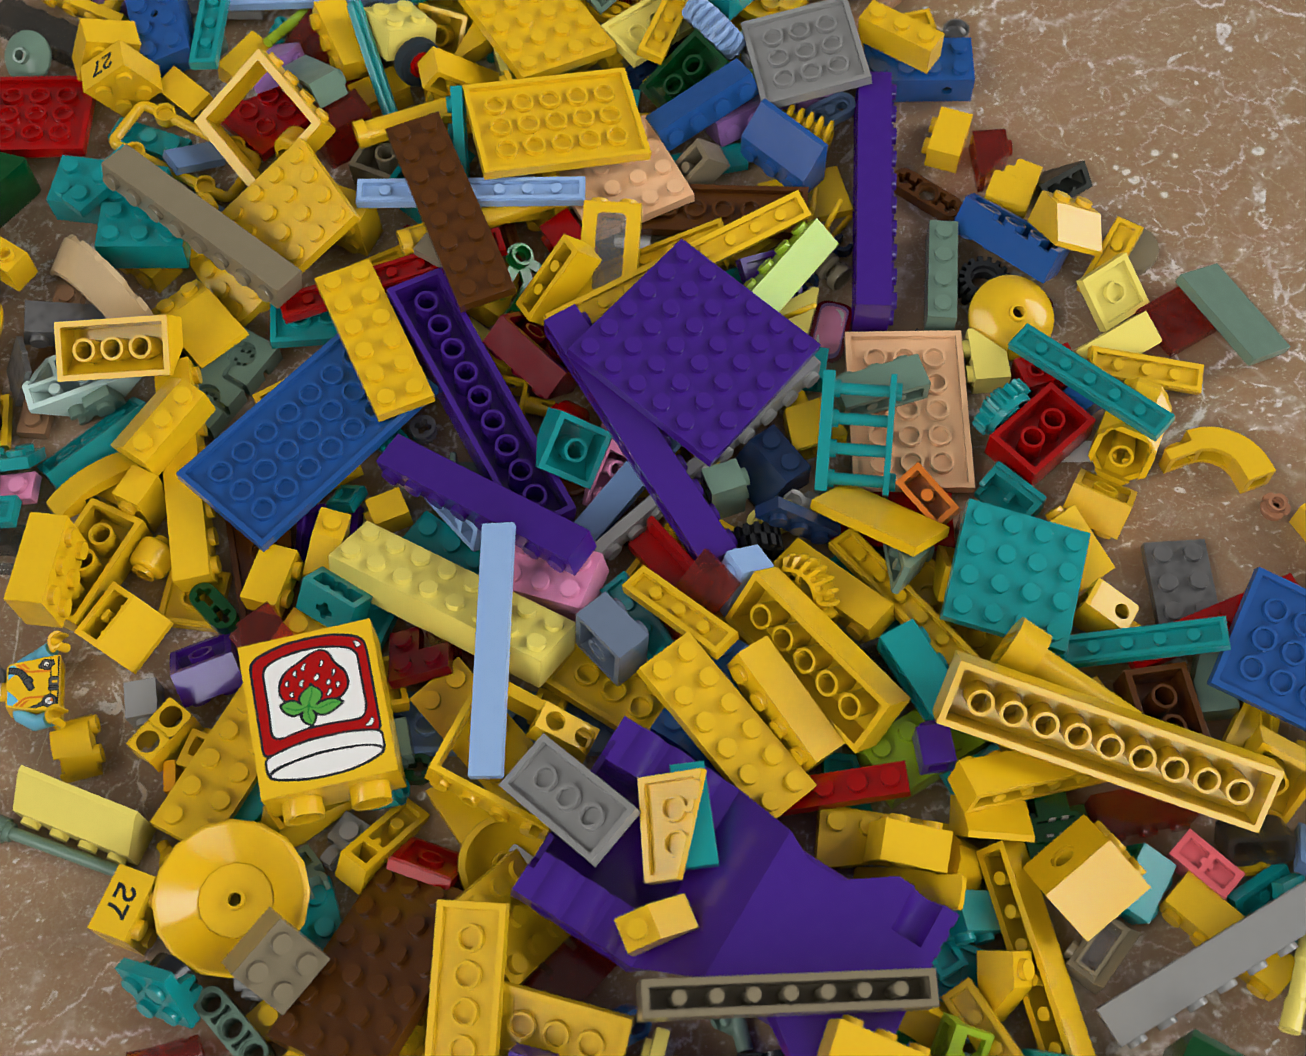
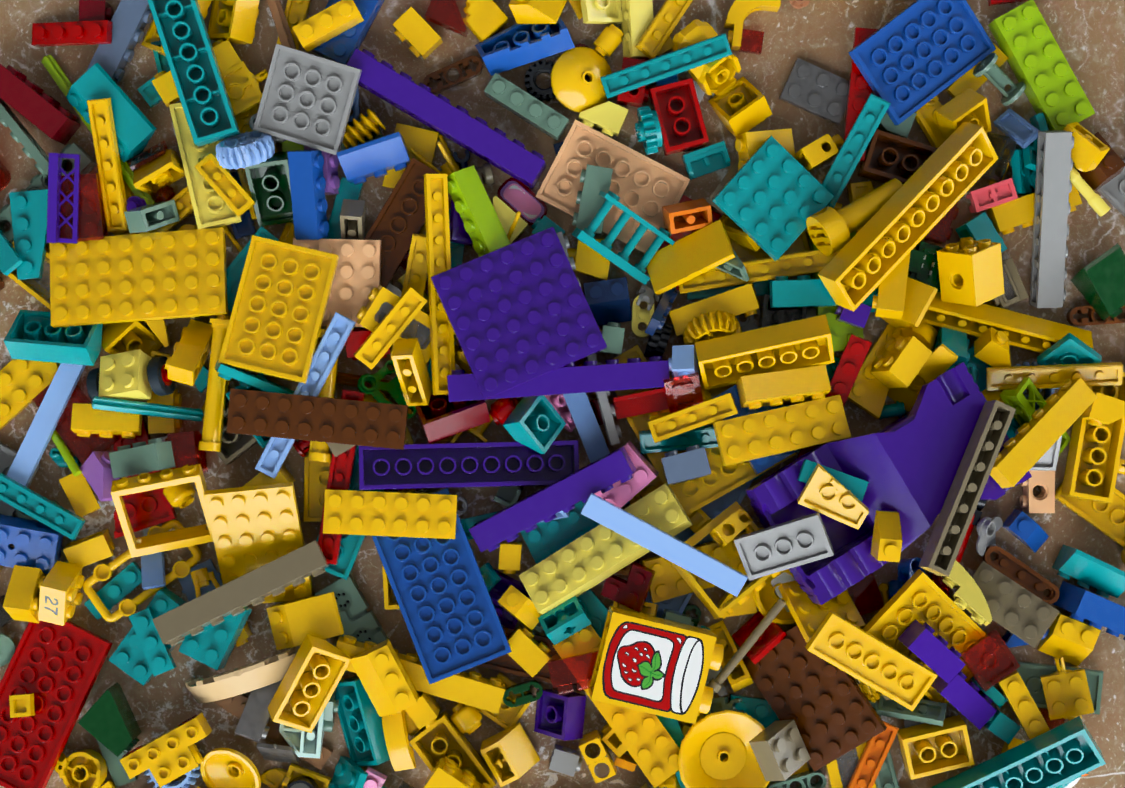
camera: 65 degrees left, 25 degrees up
(334, 831) = (716, 683): none -> dark tan bar
(598, 231) = (390, 328): none -> yellow plate
(1074, 325) = (608, 40): none -> yellow brick
(1185, 480) = (751, 41): none -> clear red tile

